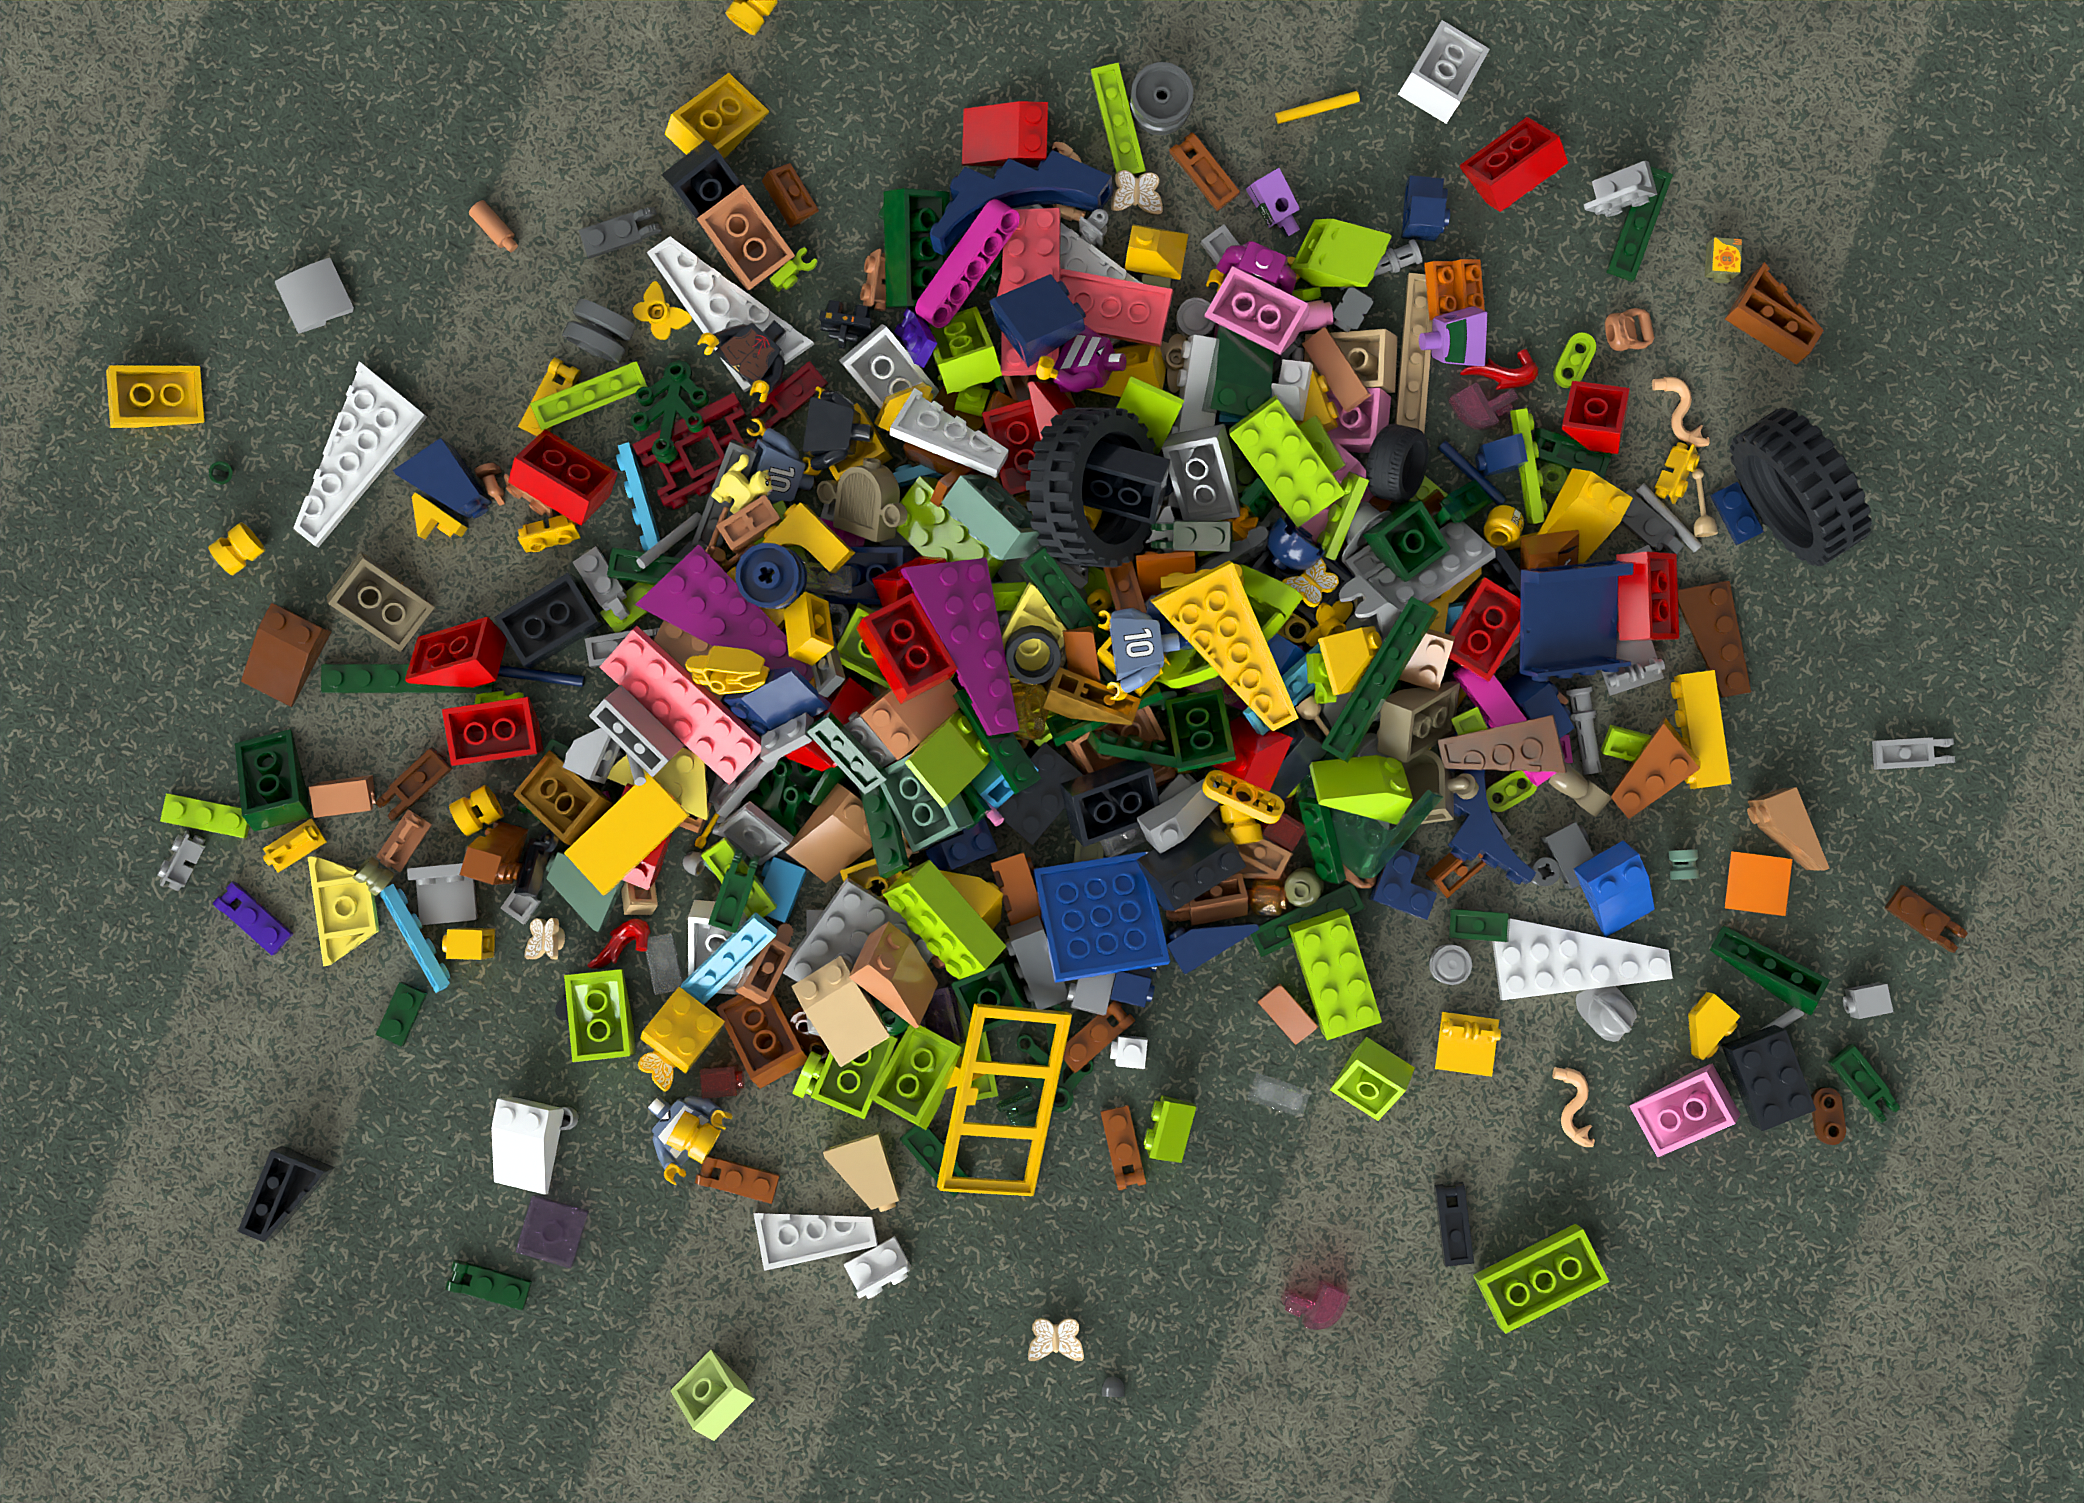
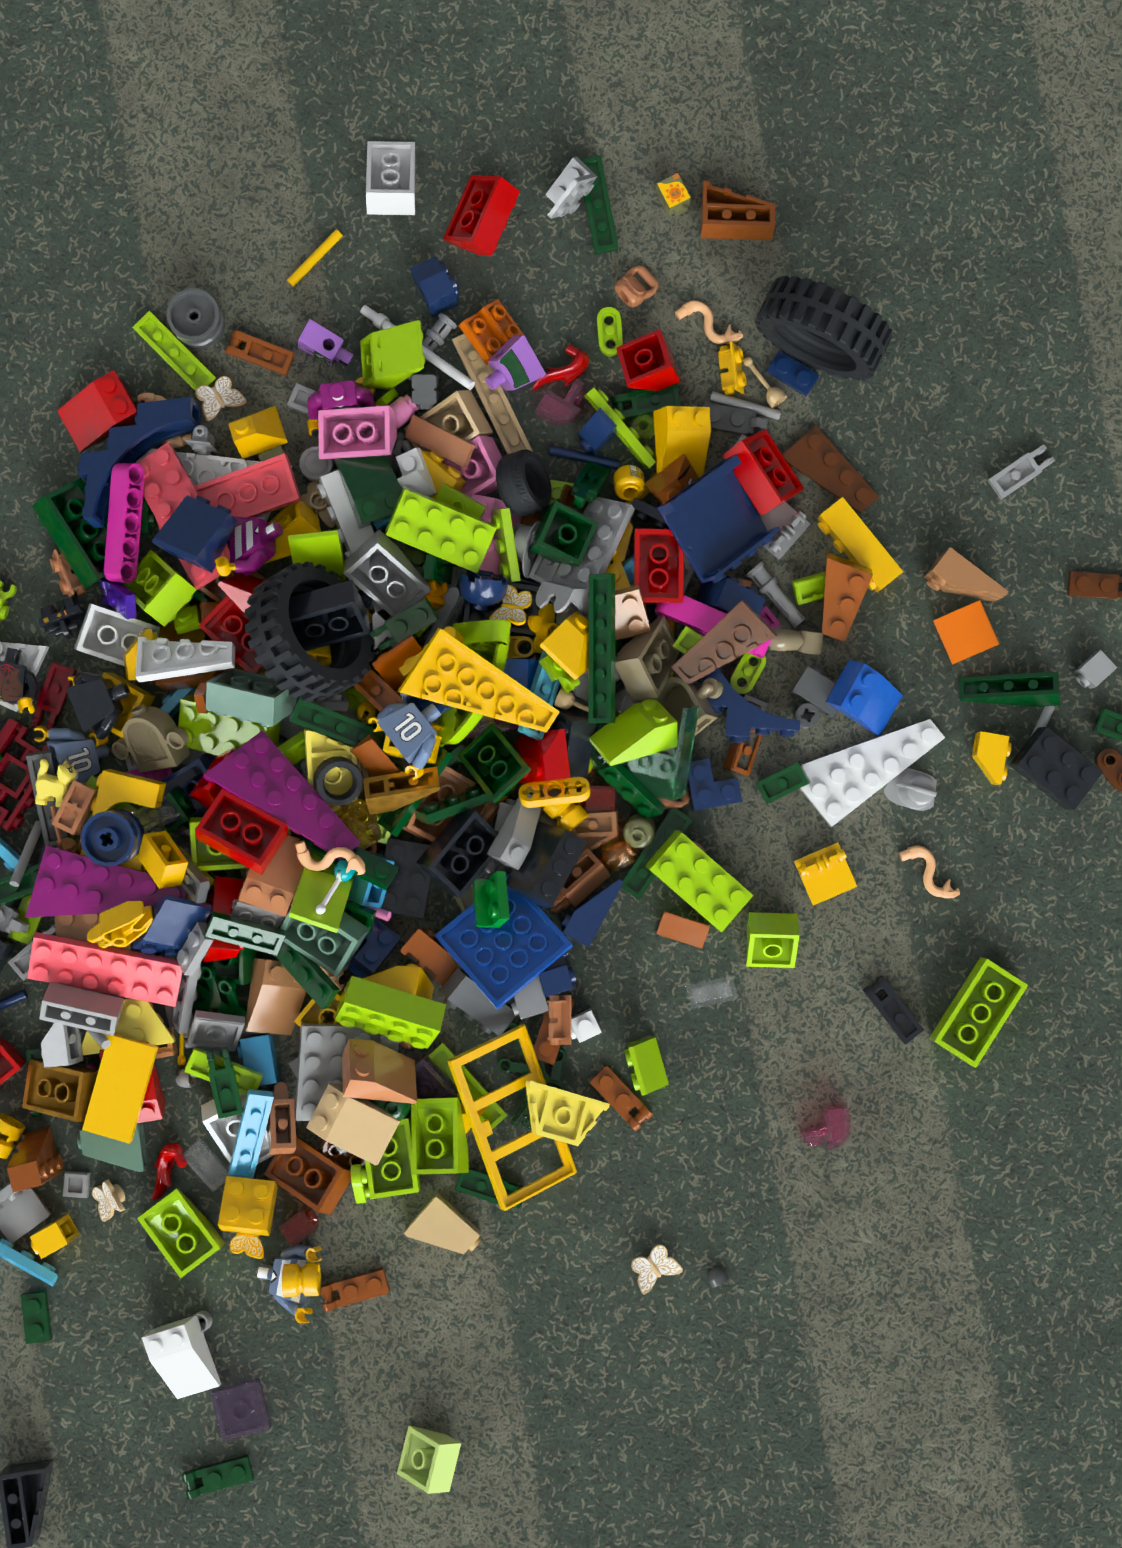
camera: 30 degrees left, 0 degrees up
(534, 863) = (67, 1147): black hinge -> none
(638, 900) = (161, 1130): tan slope -> none
(803, 1238) = (425, 1305): white wing -> none
(858, 585) = (182, 804): none -> dark green bracket
(878, 1268) = (494, 1292): white bracket -> none
(984, 750) = (340, 875): none -> hinge
(993, 986) = (454, 1038): dark green slope -> none
(1003, 745) = (354, 861): none -> light nougat animal
(1055, 1126) = (561, 1113): none -> light yellow wing
(1110, 1031) = (560, 1020): none -> nougat hinge
(1113, 869) = (491, 901): none -> green bracket
(1348, 214) = (382, 322): none -> white bar
(1450, 964) = (779, 823): light grey wheel -> none
(1684, 871) = (908, 654): sand green wheel -> none
(1686, 1110) = (1011, 827): bright pink slope -> none

